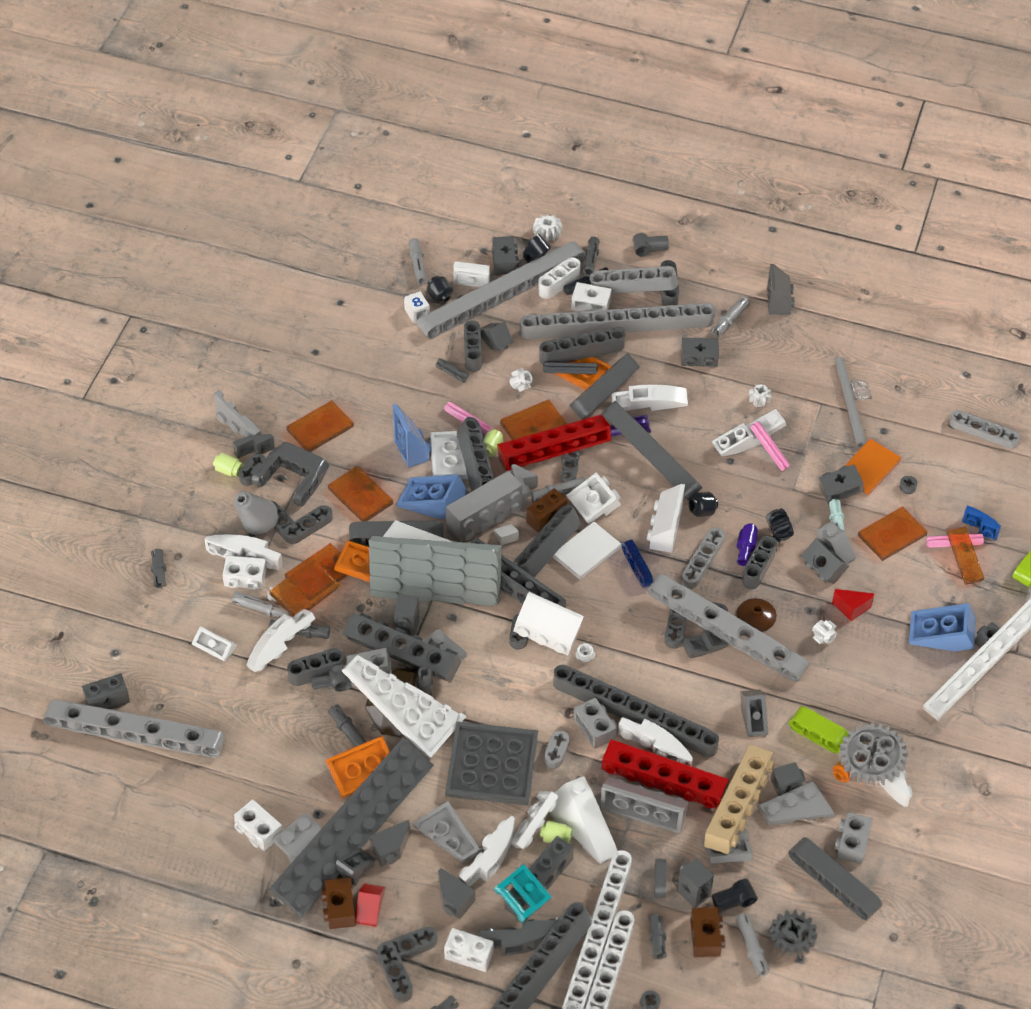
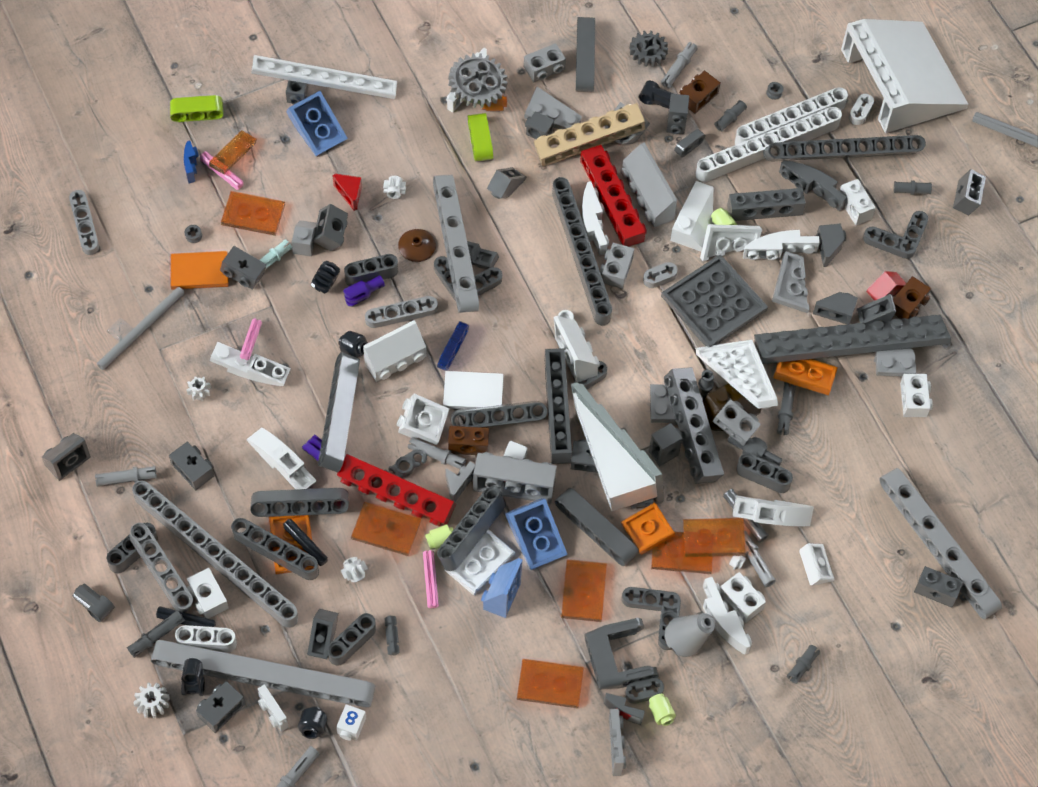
camera: 135 degrees left, 10 degrees up
(528, 888) = (791, 189): teal plate -> none

